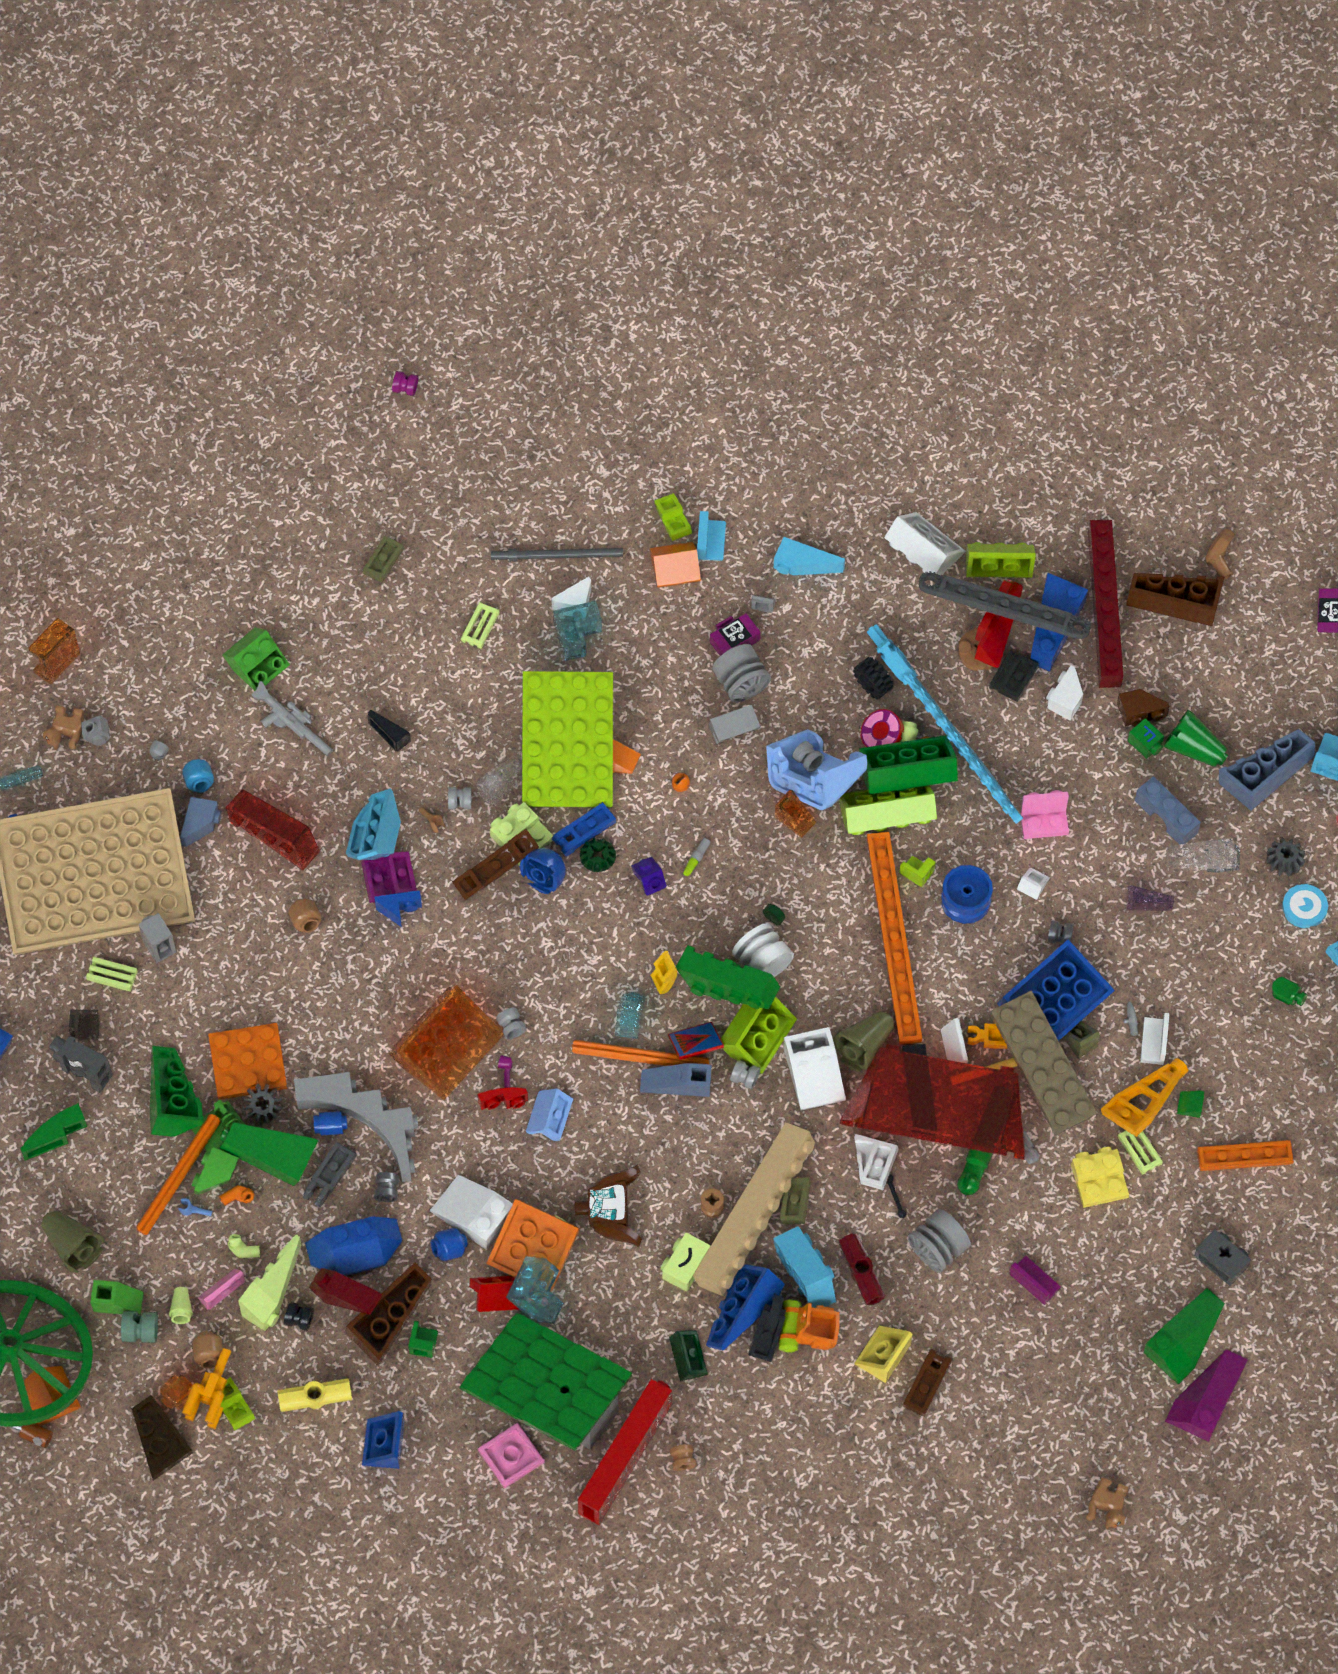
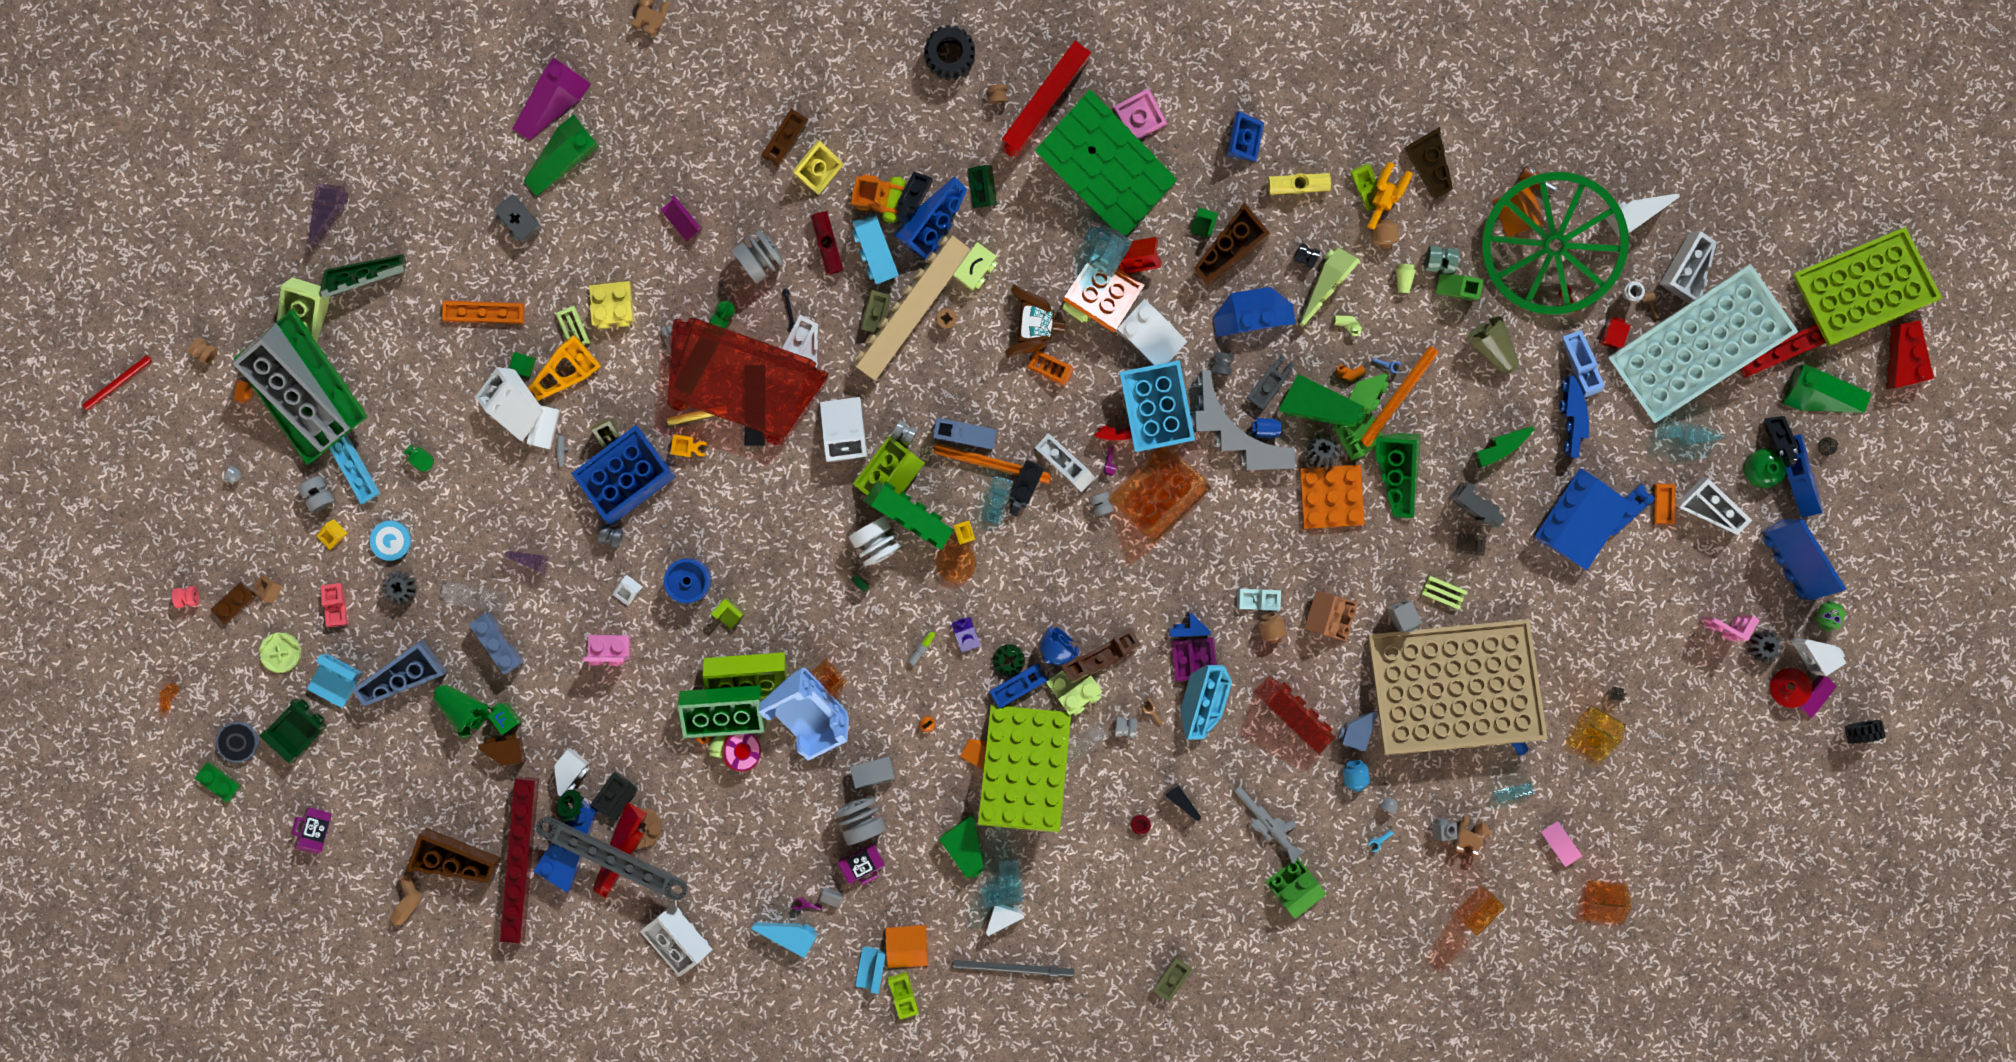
camera: 170 degrees left, 25 degrees up
(168, 715) = (1380, 840): none -> medium azure hand
(175, 1392) = (1414, 199): clear orange head -> none
(222, 1288) = (1370, 290): bright pink slope -> none
(239, 934) = (1331, 615): none -> nougat slope
(319, 946) = (1259, 599): none -> light aqua slope
(344, 1292) = (1267, 265): dark red slope -> none
(433, 706) = (1140, 824): none -> dark red tile
(449, 1244) = (1174, 305): blue head -> none
(458, 1128) = (1157, 406): none -> medium azure slope
(473, 640) = (1098, 887): yellowish green tile -> none
(550, 1113) = (1077, 416): light blue panel -> none
(557, 1062) = (1065, 462): none -> white slope
(581, 1153) = (1065, 376): none -> orange slope
(600, 1032) = (1025, 485): none -> black hinge
(626, 662) = (964, 846): none -> green slope
(673, 940) = (958, 557): none -> clear orange tile
(696, 1040) = (943, 468): piece -> none
(744, 1515) = (947, 35): none -> black tyre
(790, 593) = (807, 905): none -> magenta hand
(808, 756) = (810, 728): light grey wheel -> none
(862, 1040) = (795, 452): olive cone -> none
(873, 677) = (741, 804): black tyre -> none
(894, 938) = (757, 549): orange plate -> none
(904, 672) = (712, 803): medium azure piece -> none
(954, 1042) = (719, 441): white slope -> none
(1000, 560) = (608, 915): lime slope -> none
(1043, 1062) = (644, 411): dark tan plate -> none
(1065, 652) = (563, 810): none -> dark green gear
(1194, 1052) = (510, 402): none -> white slope

